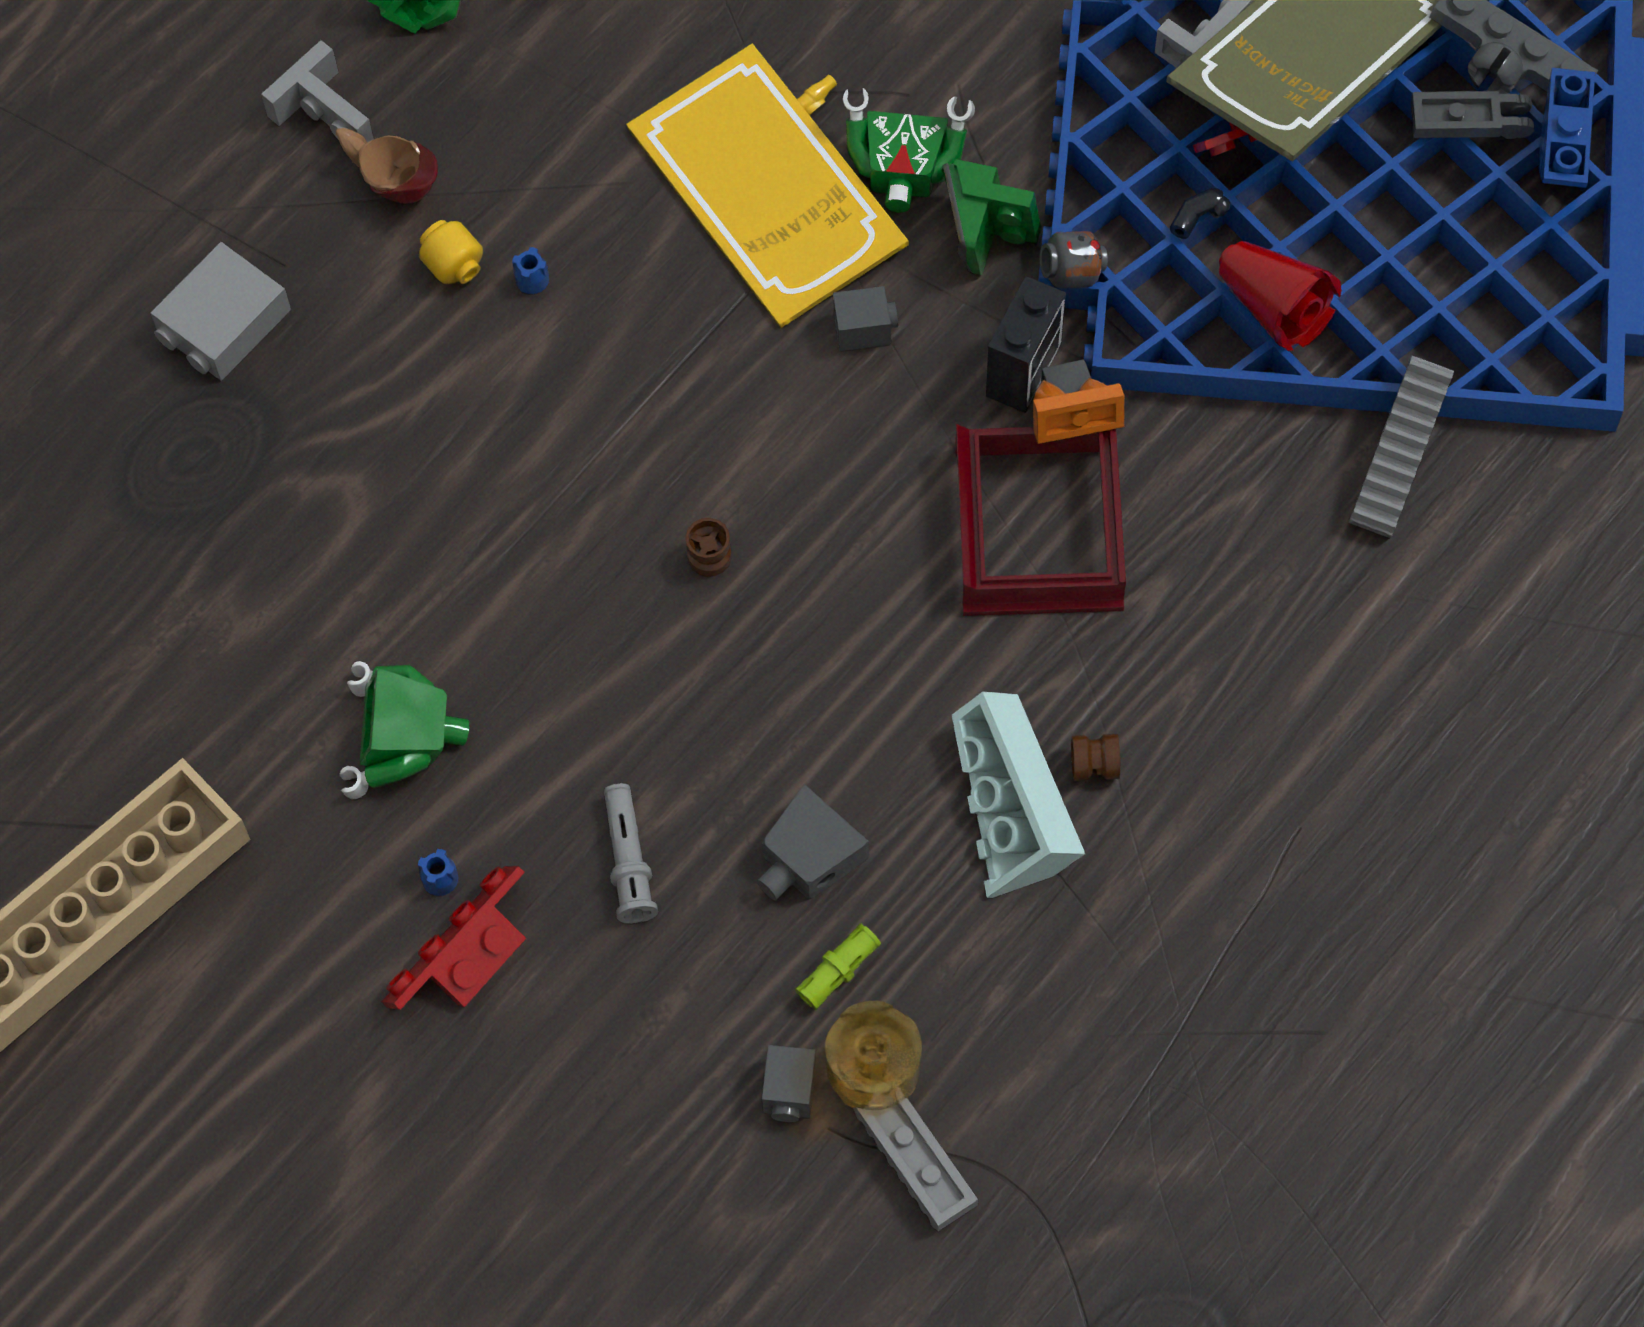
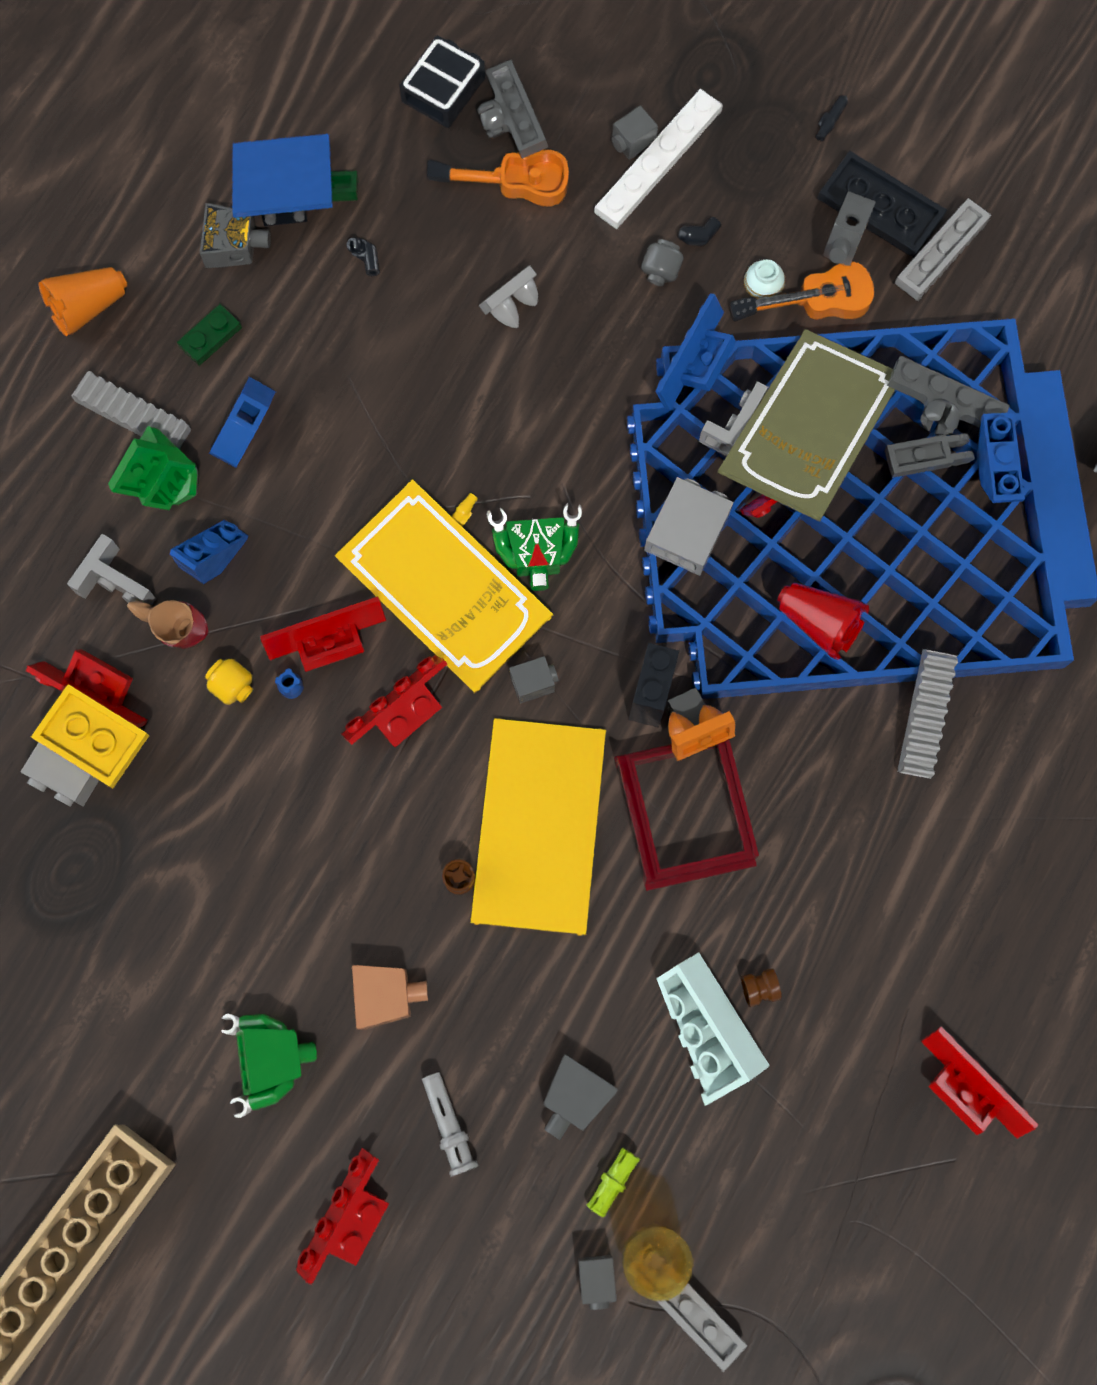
camera: 15 degrees left, 10 degrees up
(253, 280) = (90, 736): none -> yellow plate
(271, 226) = (92, 678): none -> red bracket
(441, 883) = (325, 1165): blue hose -> none
(458, 87) = (209, 551): none -> blue slope
(575, 676) = (384, 995): none -> nougat torso
(592, 217) = (326, 636): none -> red bracket
(678, 329) = (401, 709): none -> red bracket
(832, 508) = (539, 827): none -> yellow piece
(987, 209) = (600, 581): green piece -> none
(1073, 259) = (675, 616): dark grey head -> none
(1116, 150) = (688, 525): none -> light grey brick
(1196, 206) = (760, 553): black arm -> none
(1365, 939) = (972, 1091): none -> red bracket

